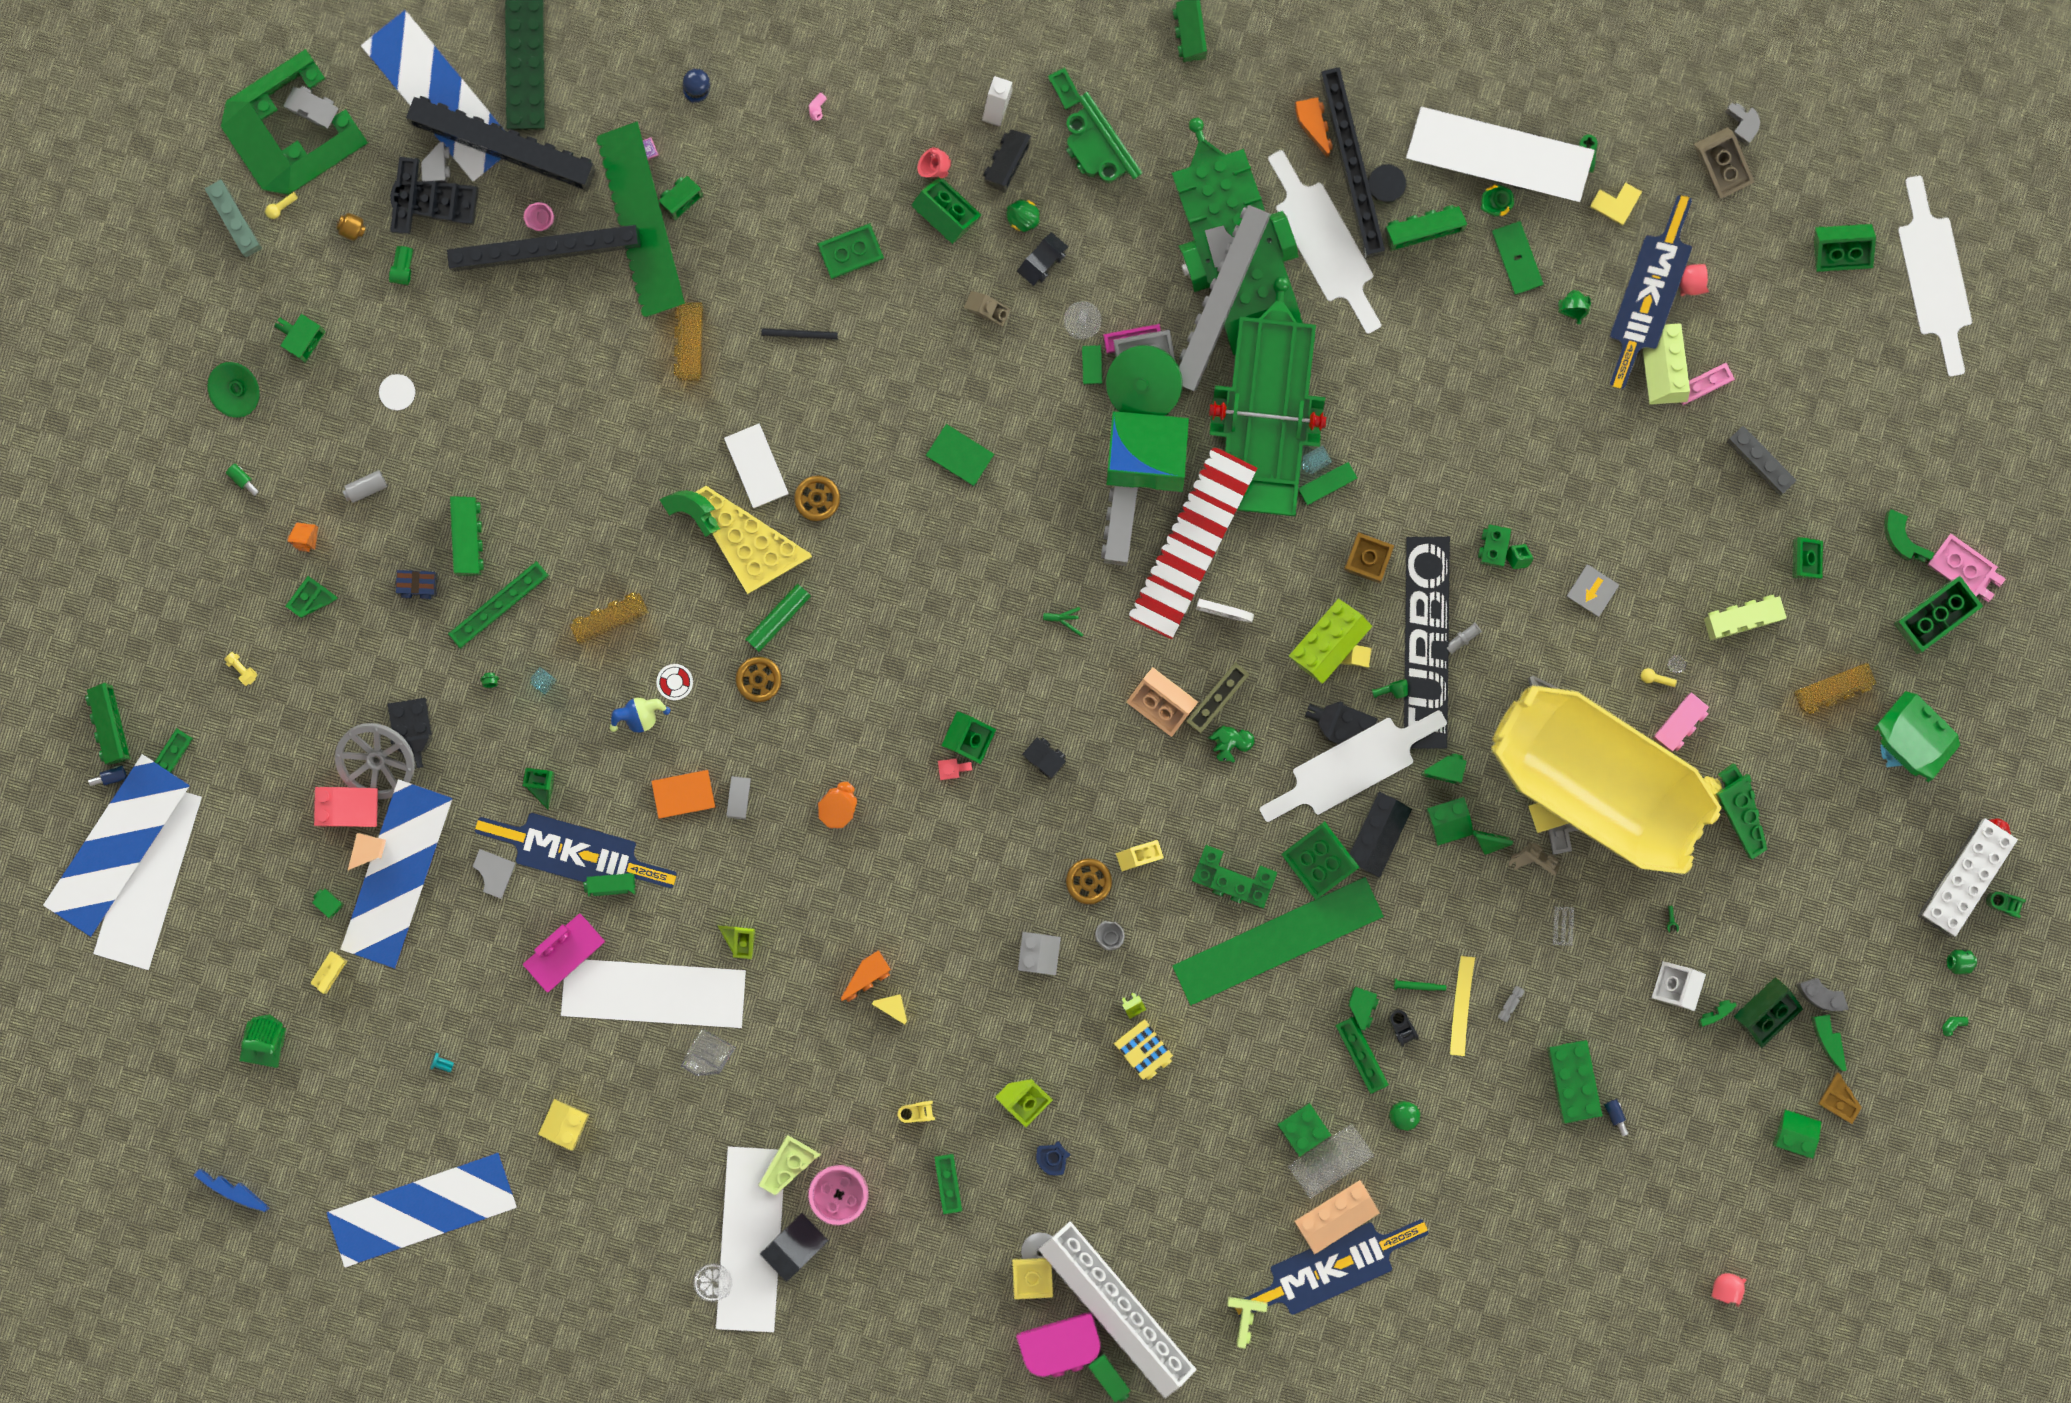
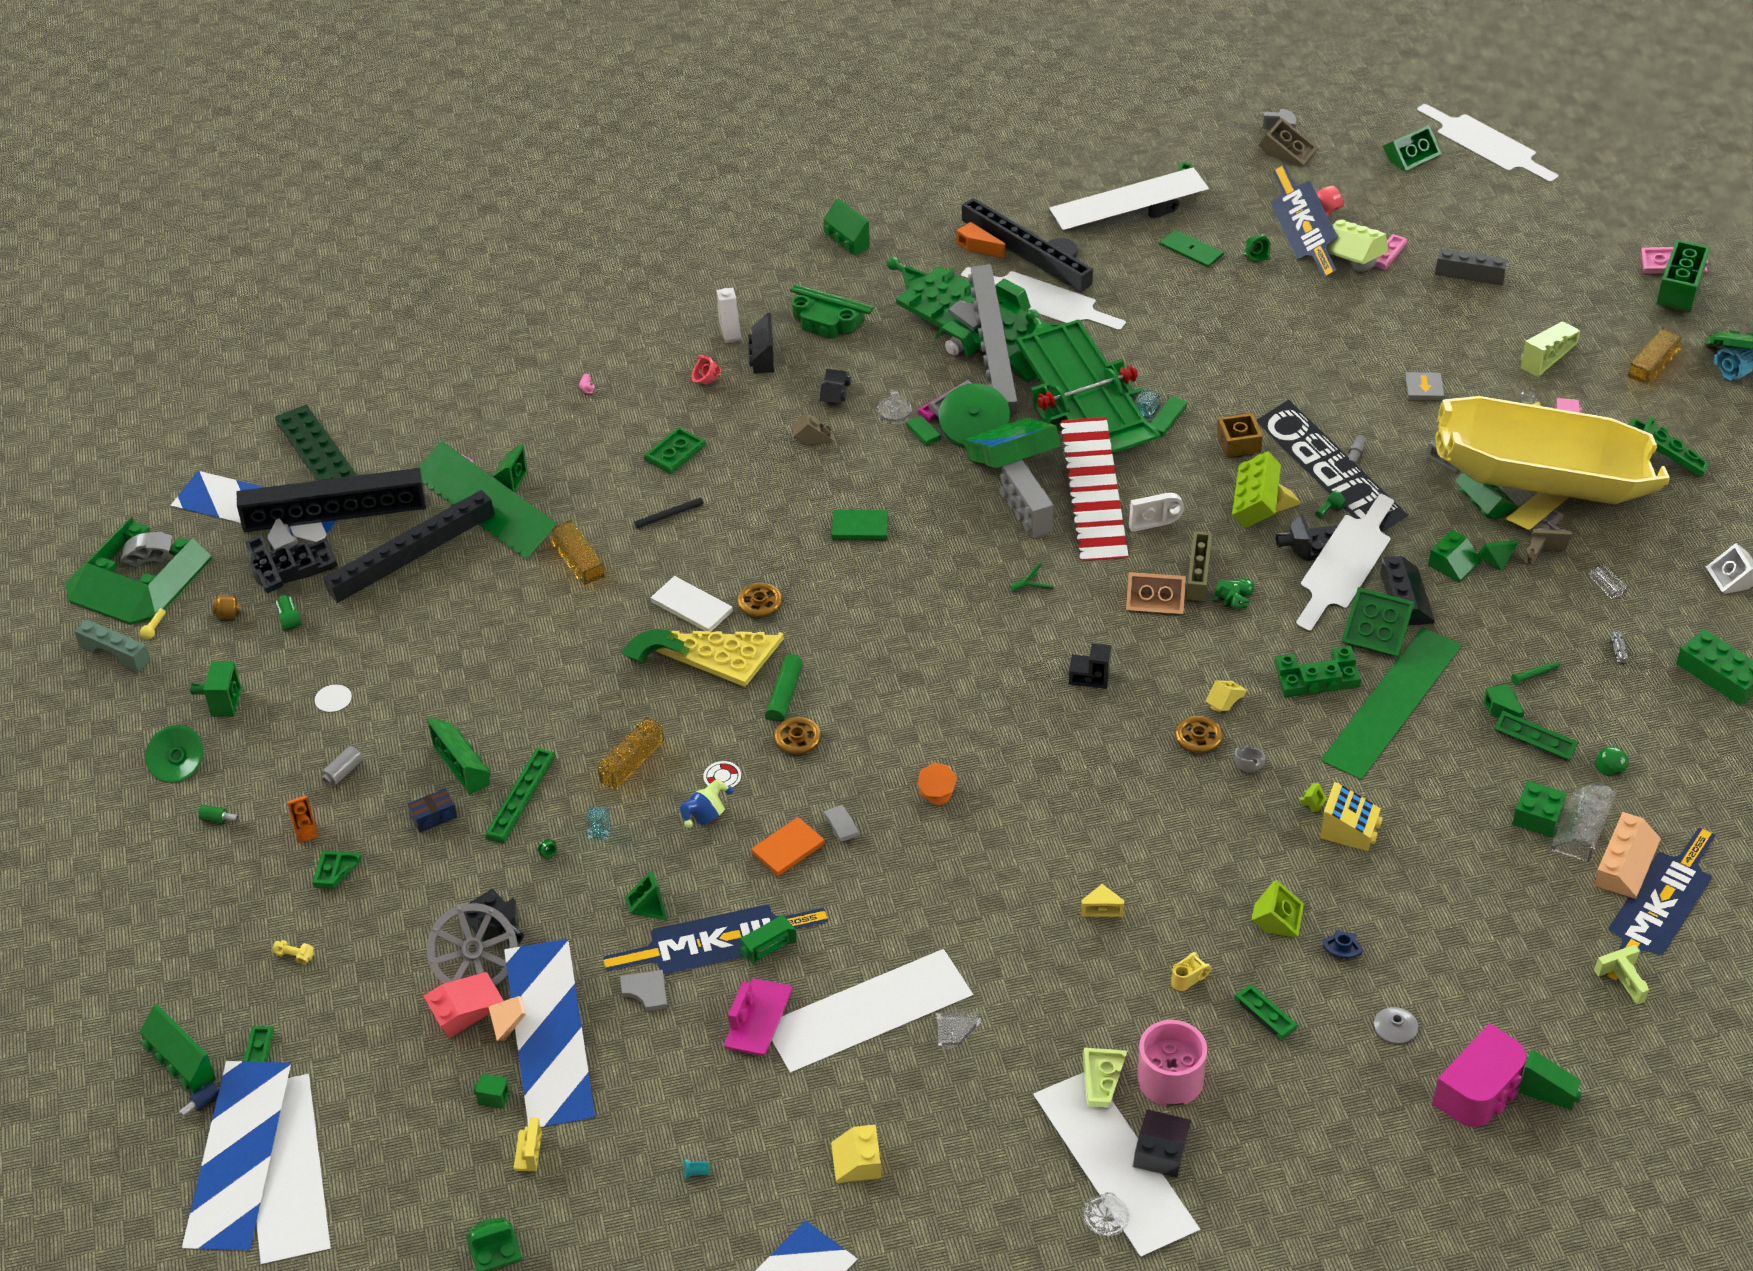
camera: 25 degrees left, 40 degrees down
(538, 216) = (390, 529): bright pink hair -> none
(696, 83) = (476, 401): dark blue helmet -> none
(739, 940) = (919, 921): lime slope -> none
(869, 970) = (1060, 885): orange slope -> none
(946, 210) = (734, 394): green slope -> none
(950, 768) = (1015, 718): coral plate -> none
(968, 737) = (1012, 686): green slope -> none
(1023, 215) = (798, 372): green hair -> none
(1032, 1278) = (1408, 1043): light yellow plate -> none
(1039, 953) = (1196, 802): light grey slope -> none
(1064, 88) = (775, 297): green plate -> none
(1117, 1309) = (1510, 1019): white brick -> none
(1403, 1028) = (1548, 701): black piece -> none
(1425, 228) = (1114, 253): green slope -> none
(1448, 769) = (1422, 523): green slope -> none
(1461, 1005) = (1576, 664): light yellow sticker -> none
(1495, 546) = (1327, 391): green brick -> none
(1497, 200) = (1149, 222): green hair -> none
(1519, 556) = (1351, 391): green slope -> none
(1616, 208) = (1237, 196): light yellow tile -> none
(1671, 920) = (1688, 540): green hand -> none
(1807, 558) = (1555, 302): green slope -> none
(1898, 540) = (1612, 265): green arch -> none

